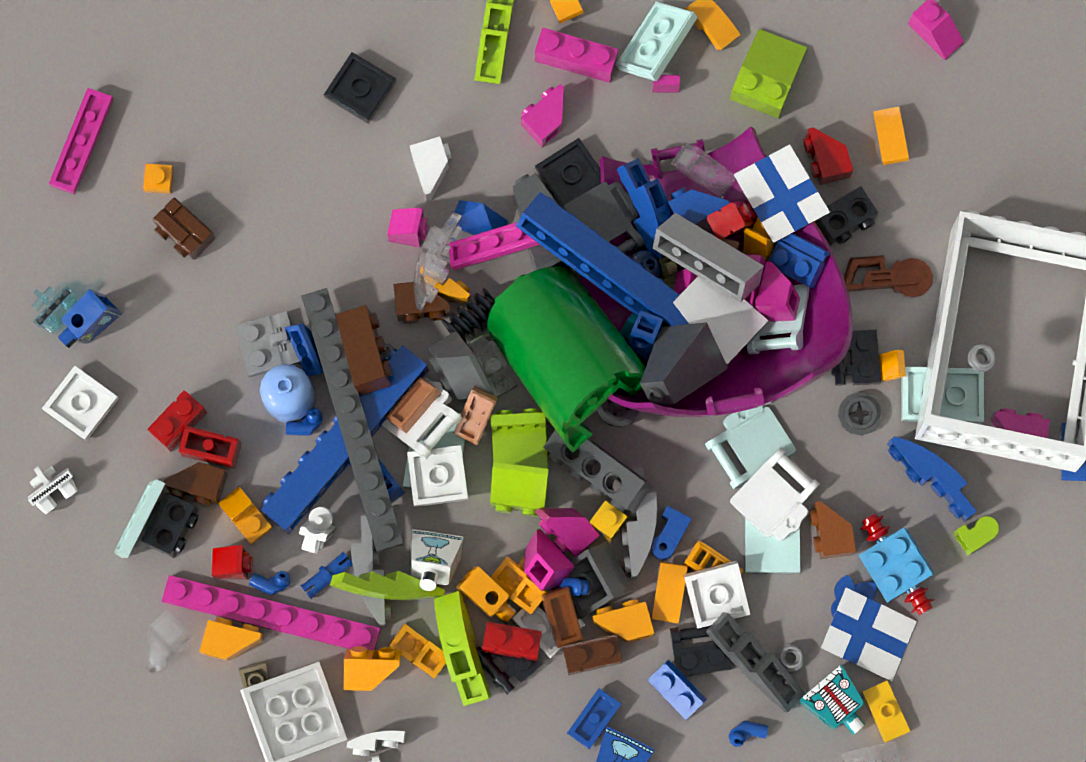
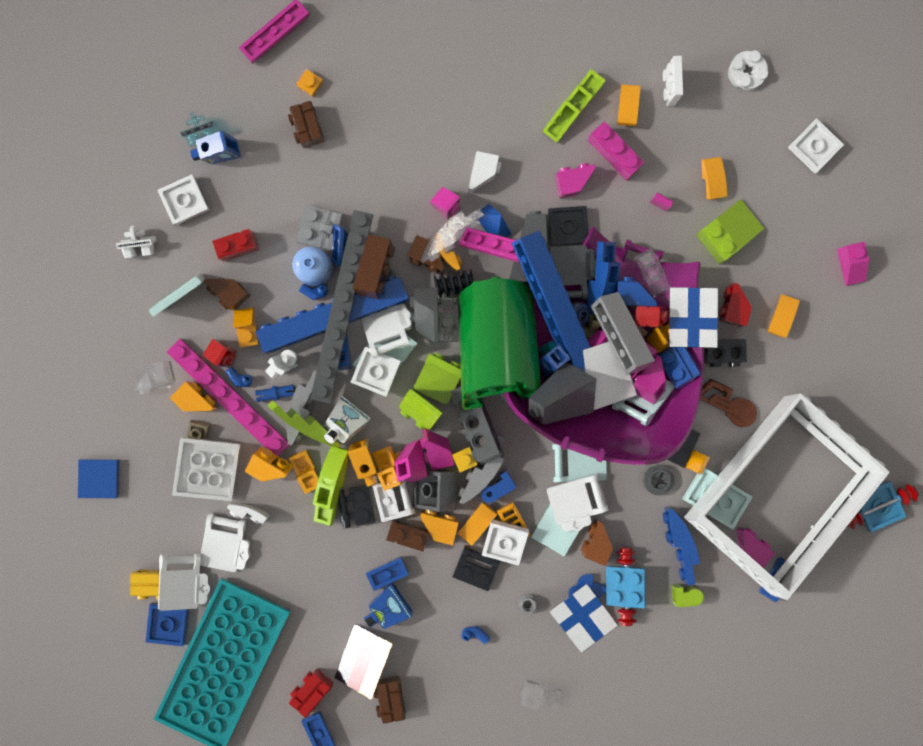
camera: 30 degrees right, 10 degrees up
(163, 522) = (194, 303): black brick -> none
(210, 447) = (246, 273): red brick -> none
(360, 87) = (467, 95): black plate -> none
(413, 405) = (385, 318): nougat tile -> none
(475, 415) = (420, 347): nougat plate -> none
(512, 641) = (362, 501): red brick -> none
(562, 616) = (401, 503): dark orange tile -> none
(576, 586) = (418, 488): blue arm -> none
(656, 41) = (671, 171): light aqua tile -> none
(677, 689) = (447, 585): plate -> none
(755, 662) = (504, 596): dark grey slope -> none
(835, 701) = (539, 647): torso -> none
(885, 711) = (566, 669): yellow plate -> none
(988, 354) = (764, 499): light grey plate -> none

